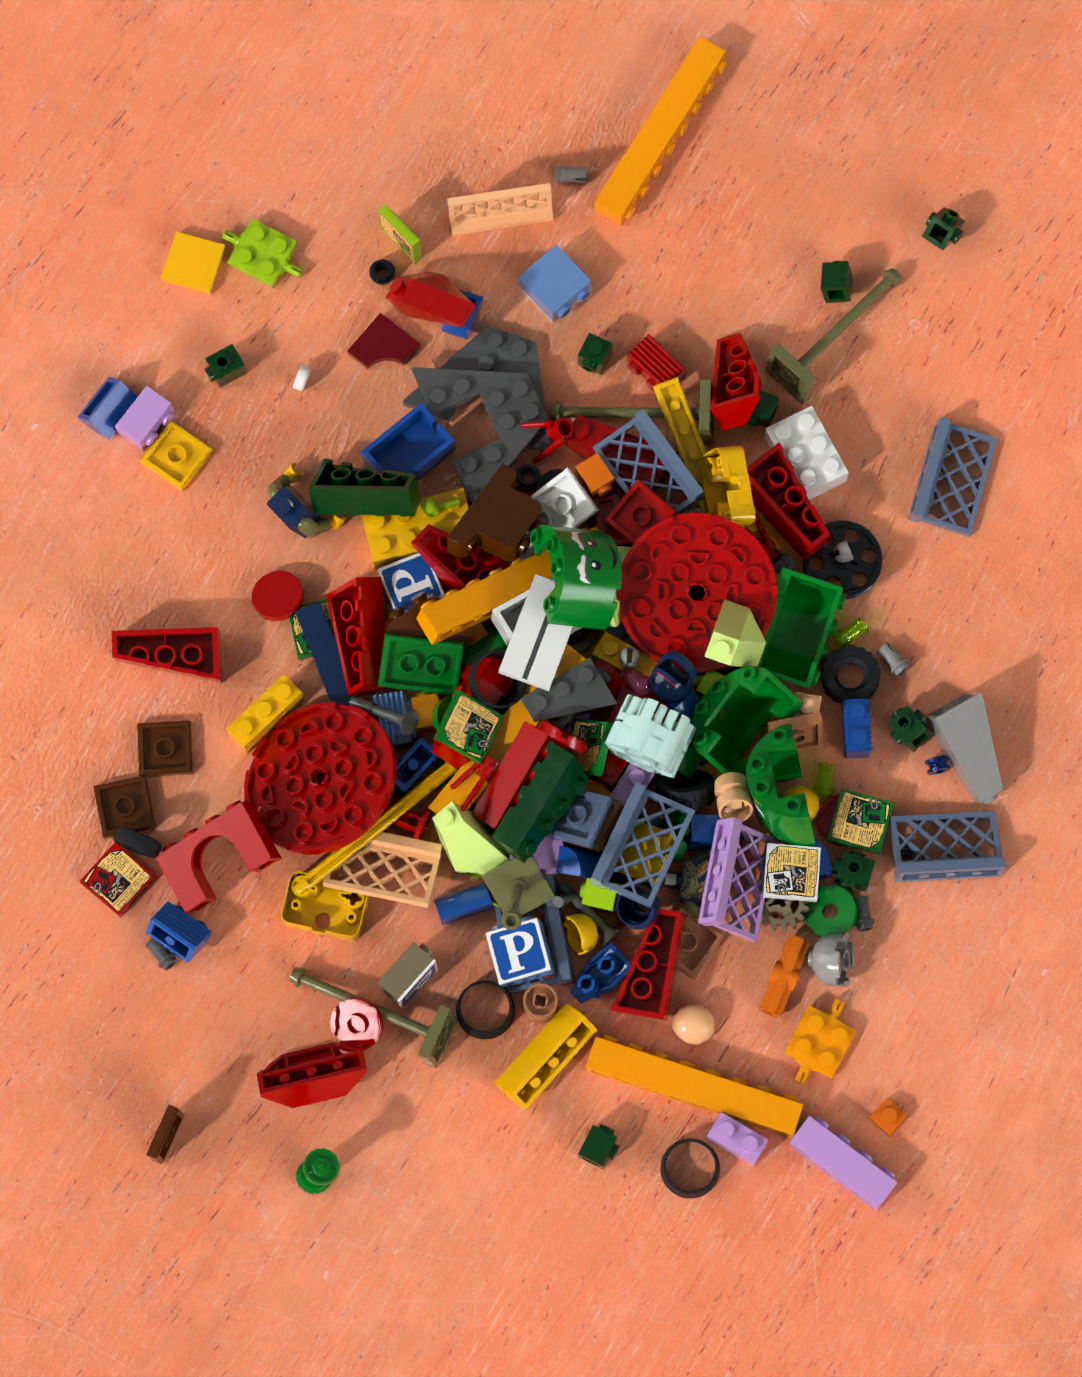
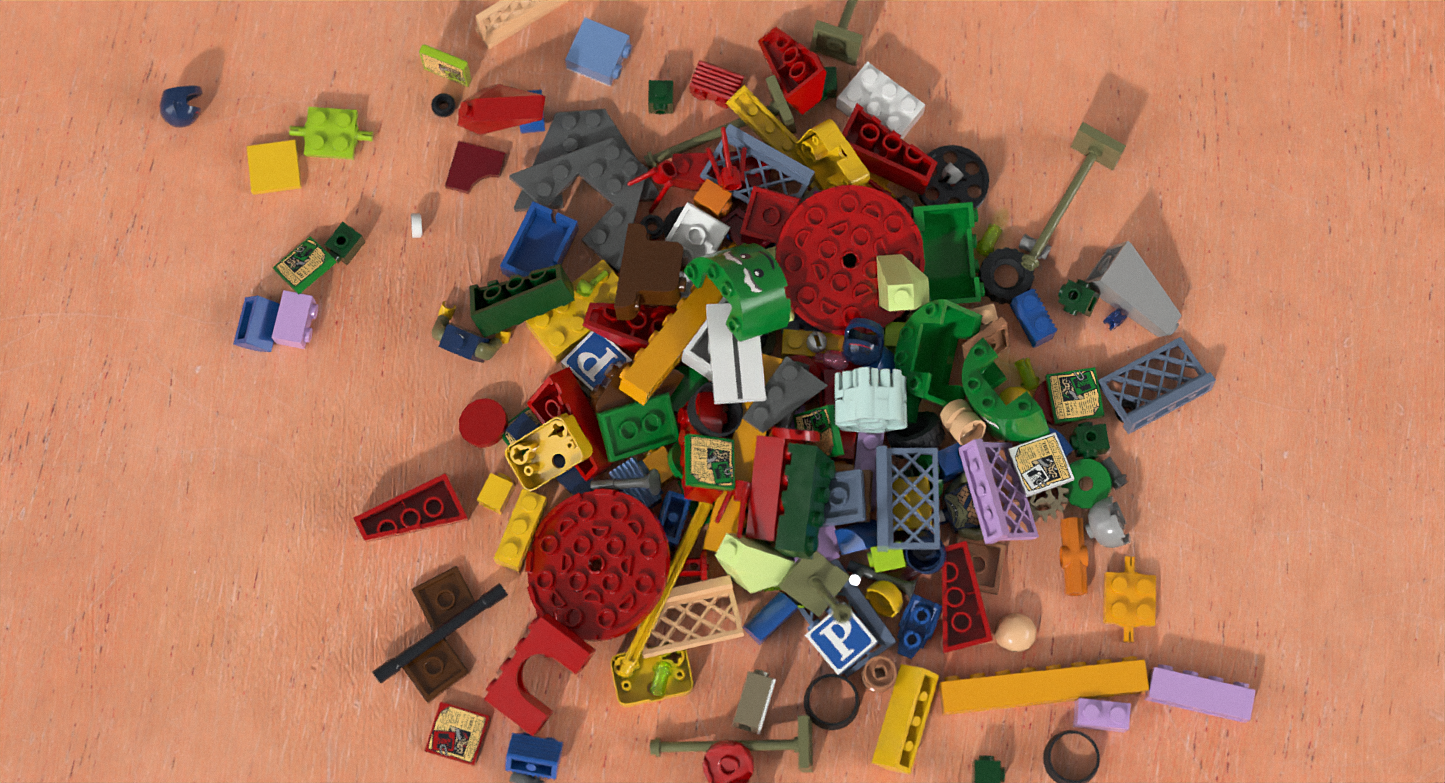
camera: 30 degrees left, 0 degrees up
(125, 165) = (175, 107): none -> dark blue helmet
(137, 842) = (461, 693): black tyre -> none
(176, 456) = (336, 340): yellow tile -> none
(177, 370) = (304, 265): none -> tile
(200, 766) = (394, 664): none -> black piece
(259, 667) = (496, 492): none -> yellow brick
(308, 657) = (537, 465): none -> yellow axle
(334, 906) = (660, 678): none -> clear neon green pin
(619, 461) = (730, 178): none -> red plant
(888, 1117) = (1217, 637): orange plate -> none
(931, 470) = (991, 78): sand blue fence -> none
(998, 588) = (1097, 148): none -> olive tile

